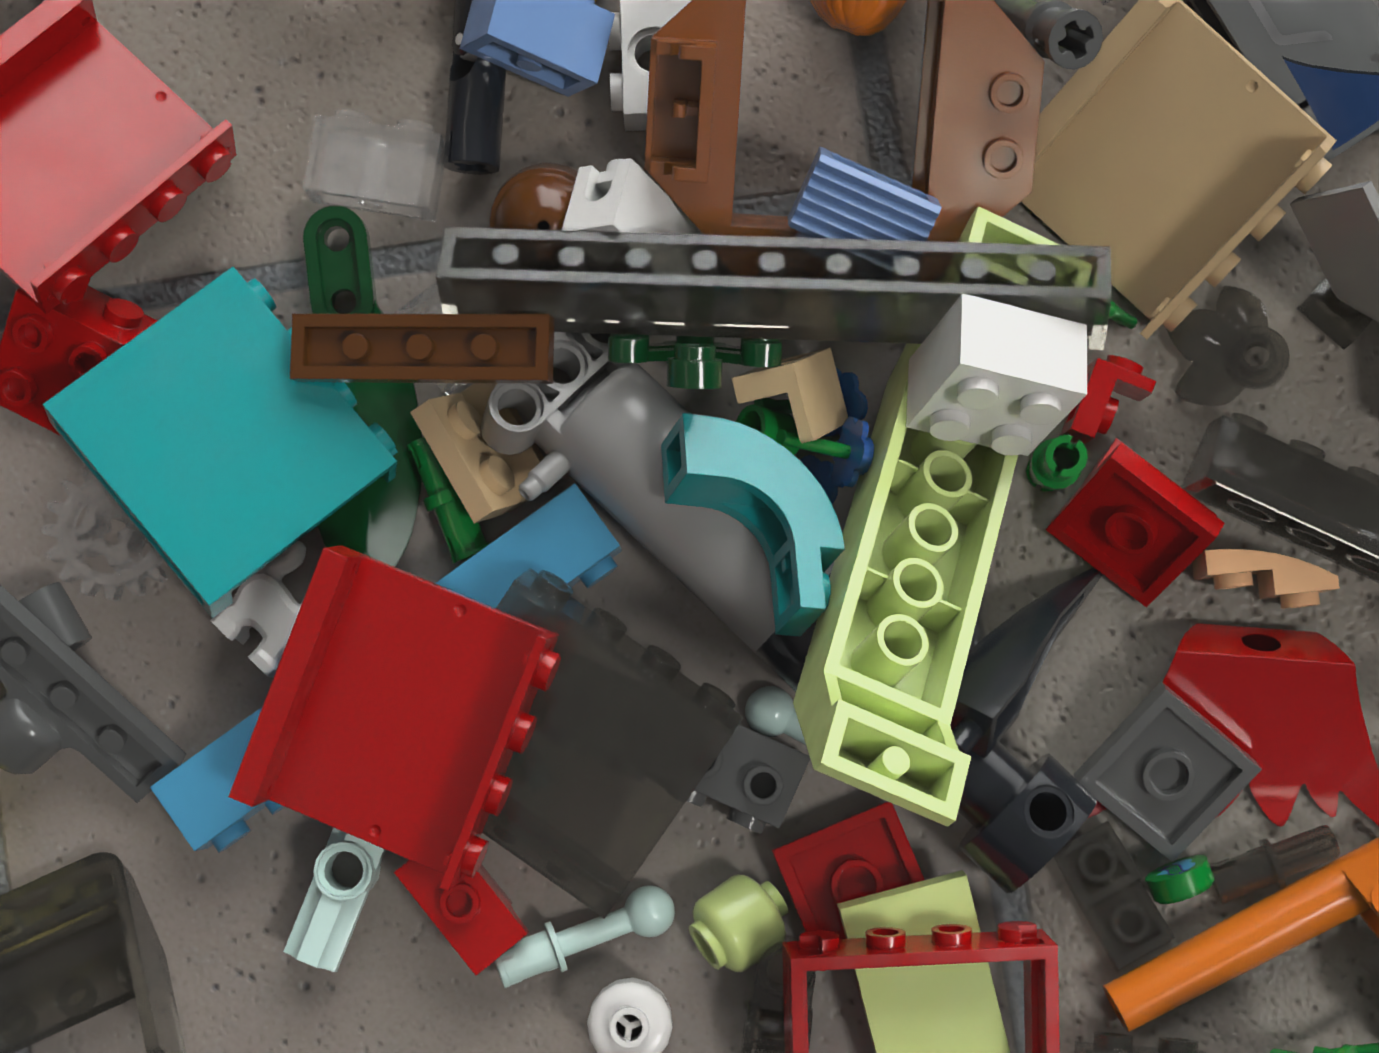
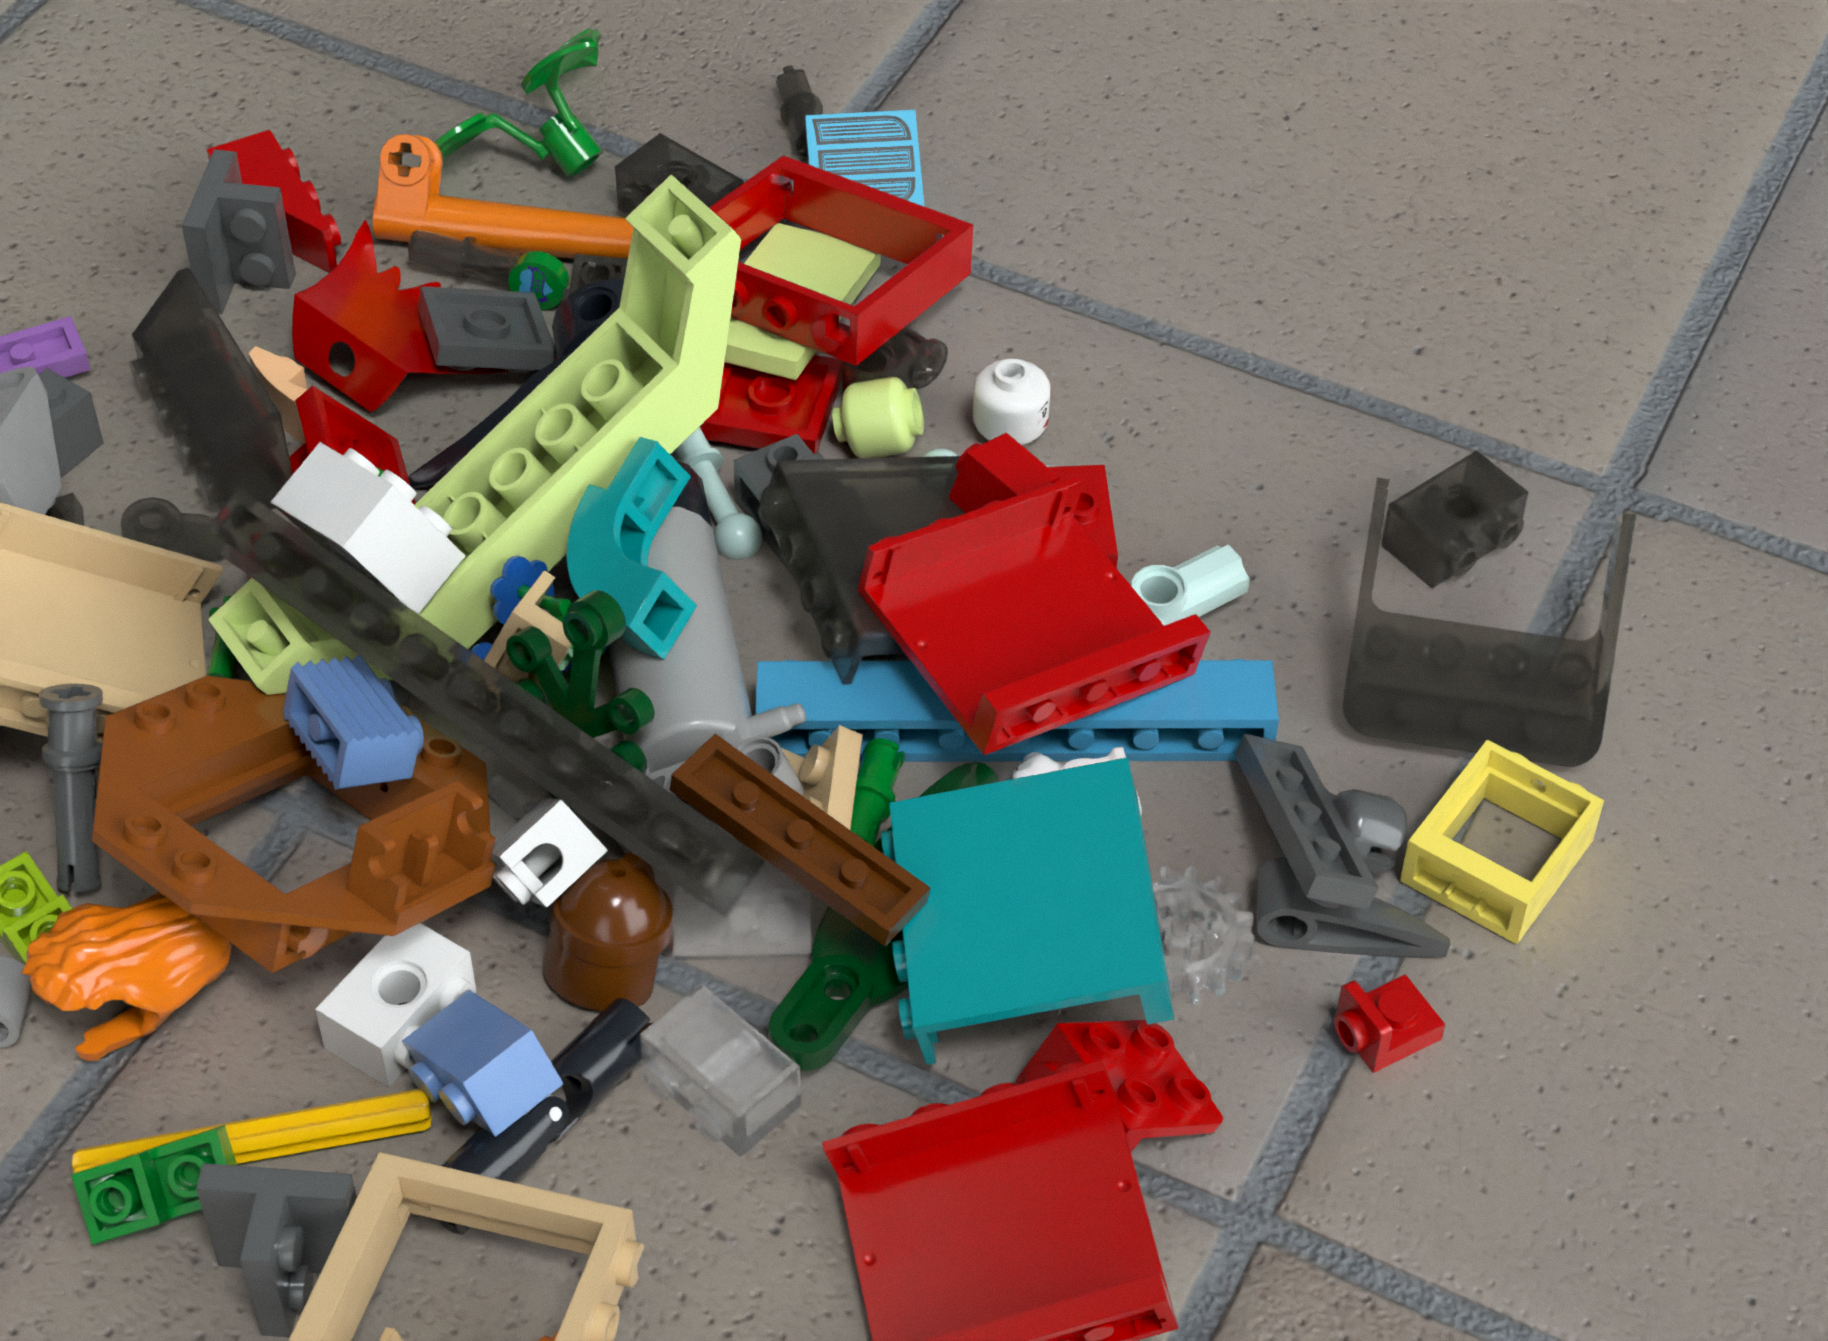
camera: 145 degrees left, 35 degrees down
(536, 868) = (997, 472): none -> red brick

